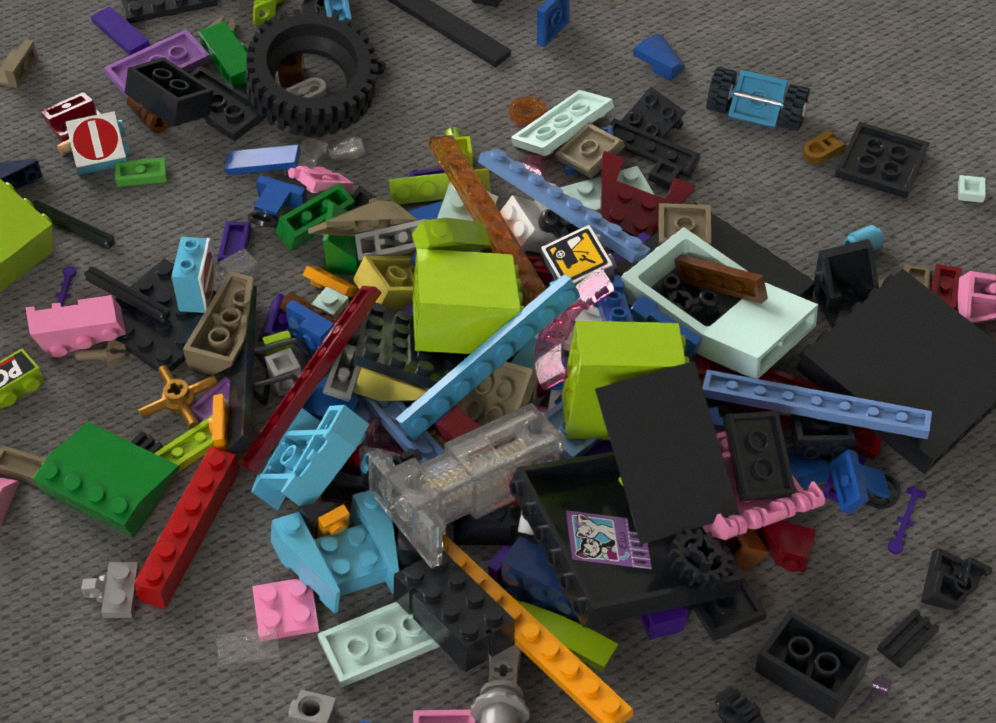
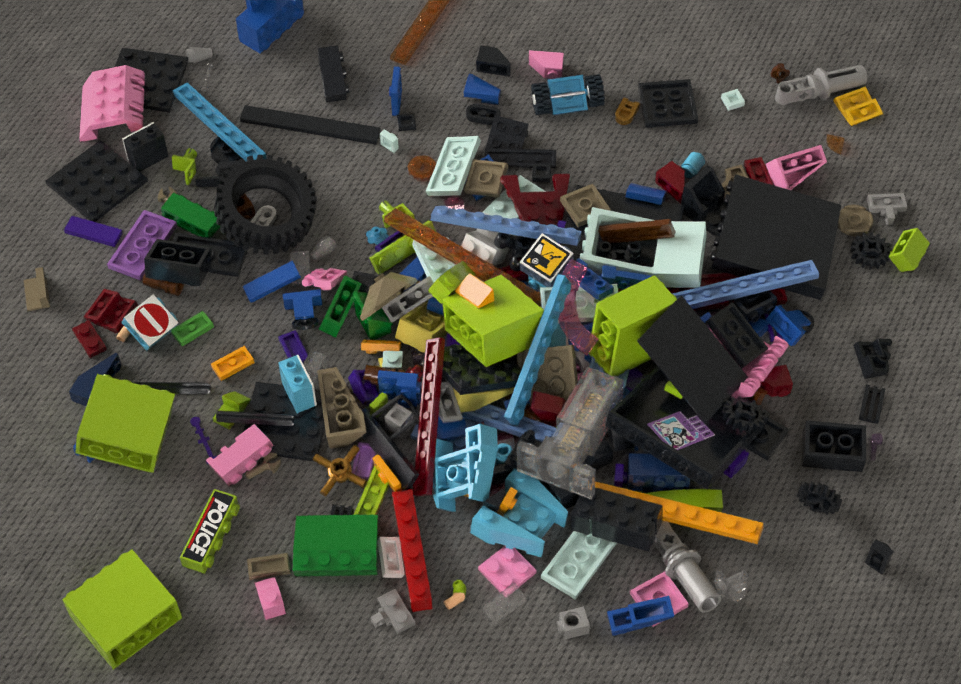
camera: 30 degrees left, 5 degrees up
(28, 136) = (89, 339): none -> dark red plate
(123, 269) = (232, 402): none -> lime slope
(154, 227) = (232, 363): none -> light orange plate
(155, 521) = (391, 557): none -> white plate
(205, 608) = (459, 594): none -> arm
(421, 161) = (376, 235): none -> dark azure plant
(458, 256) = (475, 291): none -> slope
(509, 66) = (389, 141): none -> light aqua plate
(547, 56) = (406, 122): none -> black tile
(642, 82) = (482, 113): none -> black plate
(693, 29) = (492, 61): none -> black slope
(761, 56) = (547, 64): none -> bright pink slope
(776, 248) = (646, 193): none -> blue slope
(822, 238) = (672, 180): none -> dark red slope
(896, 546) = (830, 352): dark purple piece -> none

